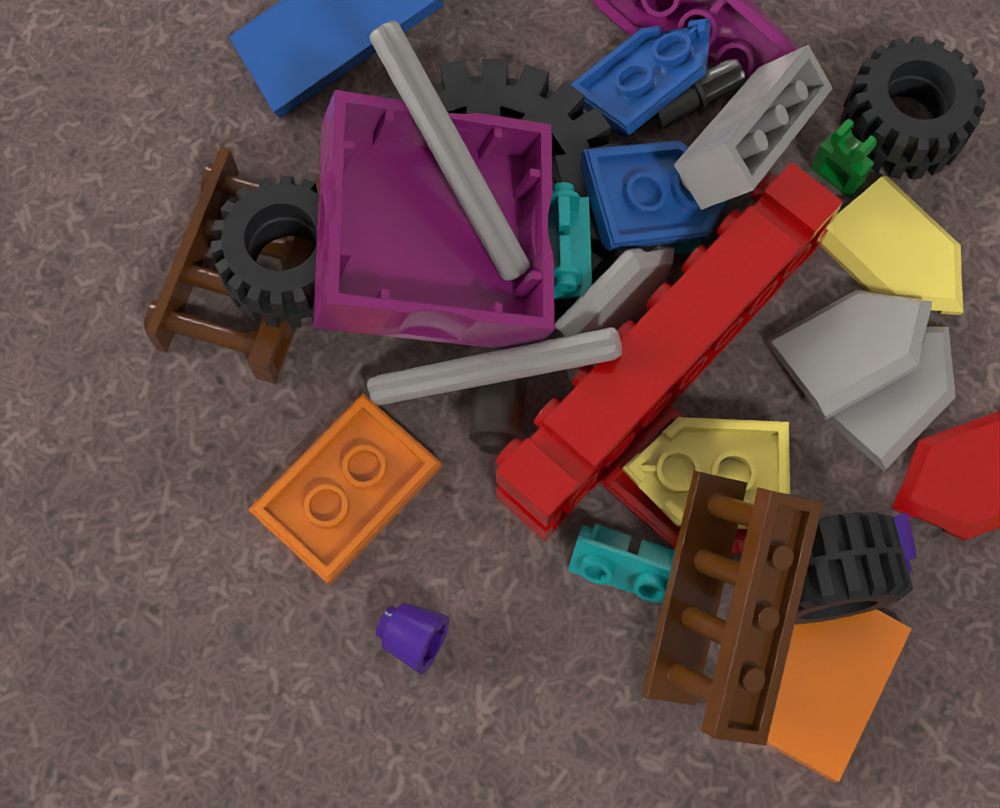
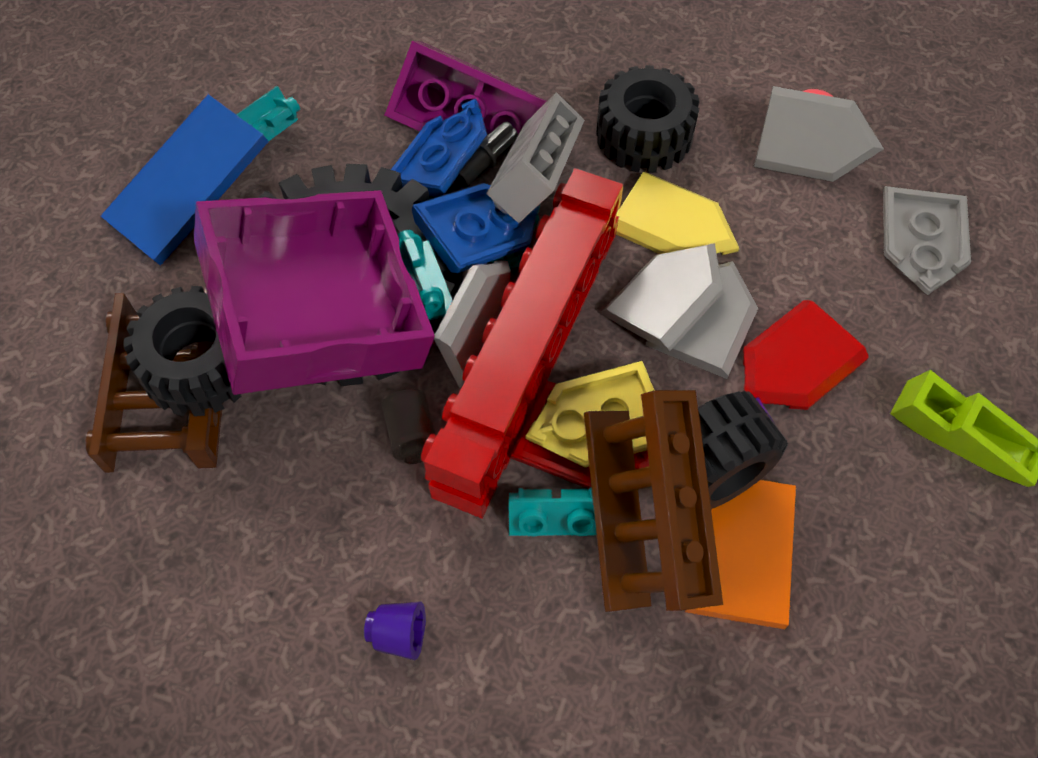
camera: 20 degrees left, 10 degrees down
(345, 488) = (301, 532): orange tile -> none
(449, 150) = (305, 225): light grey axle -> none
(496, 366) = (395, 388): light grey axle -> none
(844, 159) = (612, 161): green plate -> none

